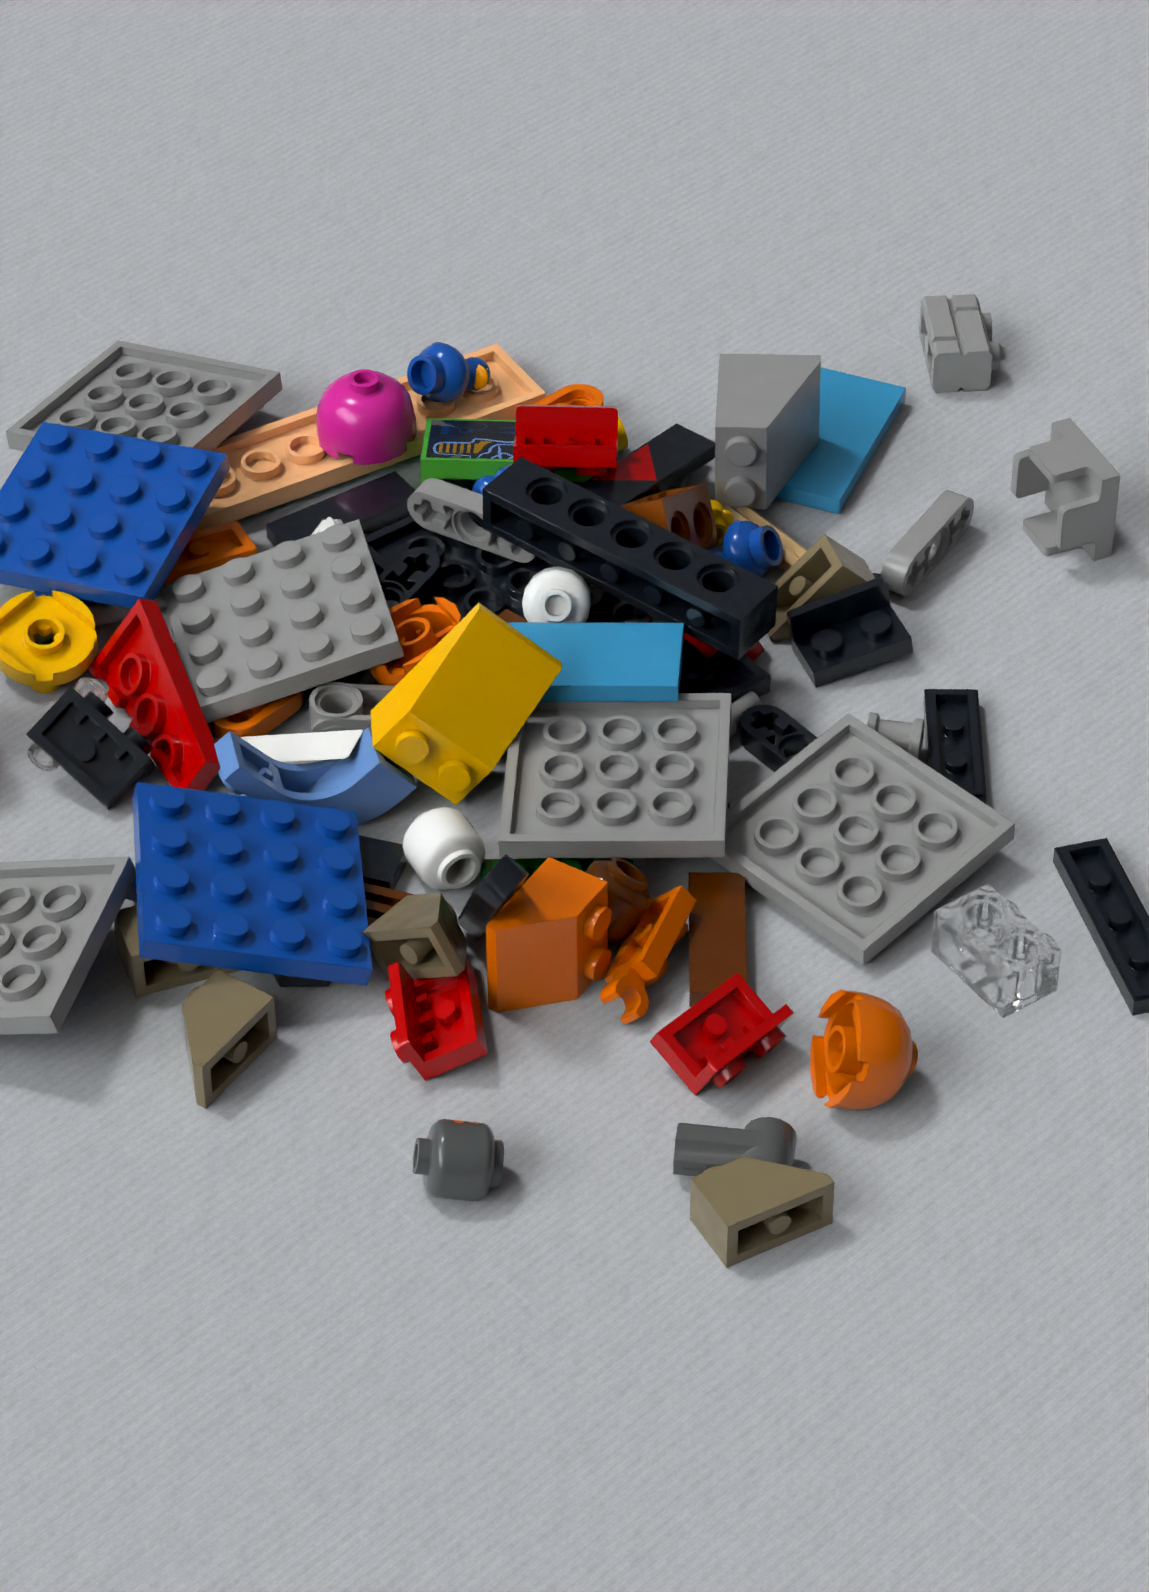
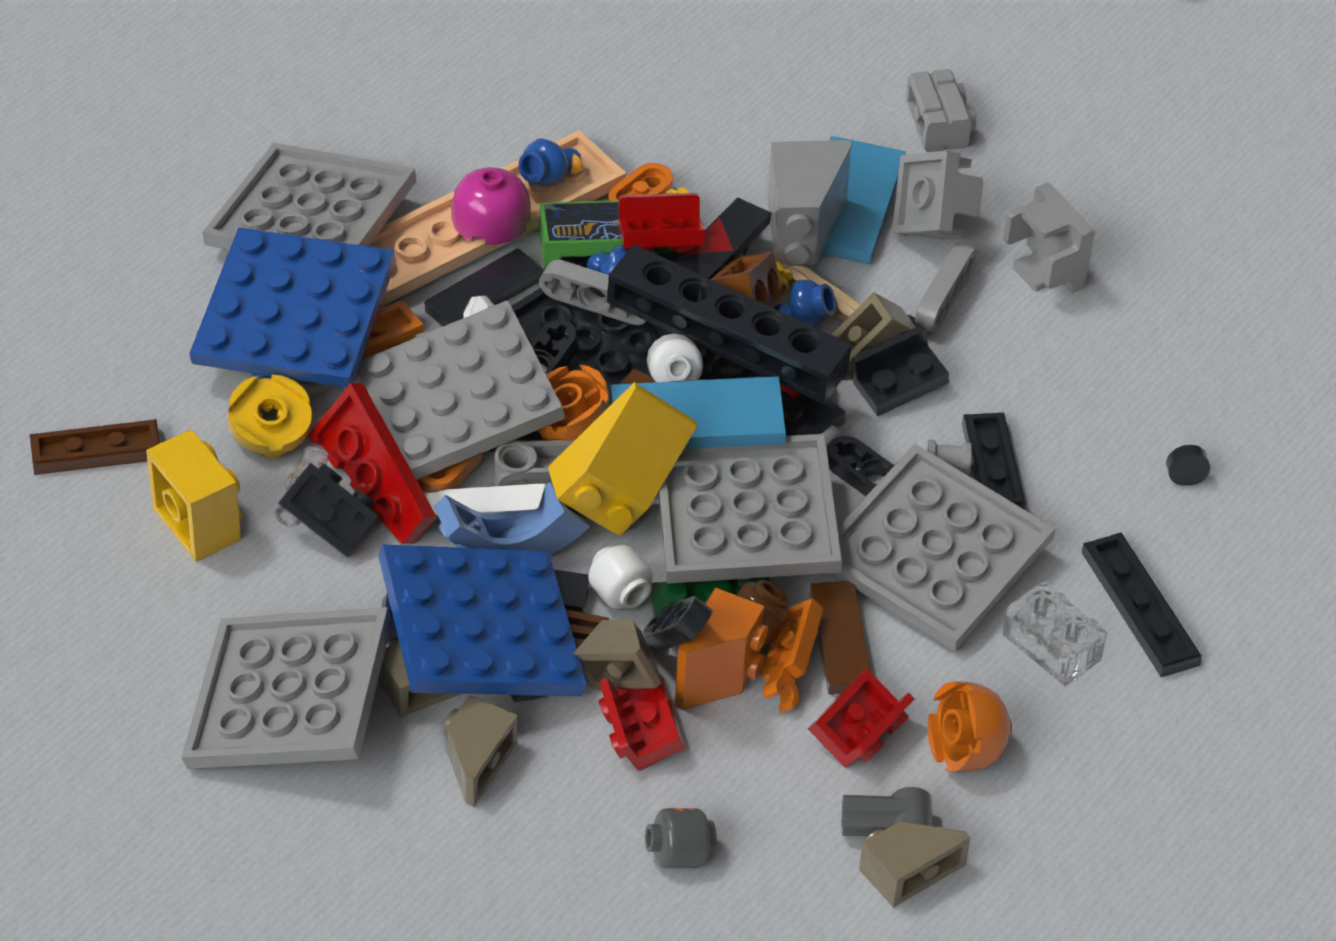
camera: 10 degrees left, 5 degrees up
(921, 424) = (932, 192): none -> light grey panel

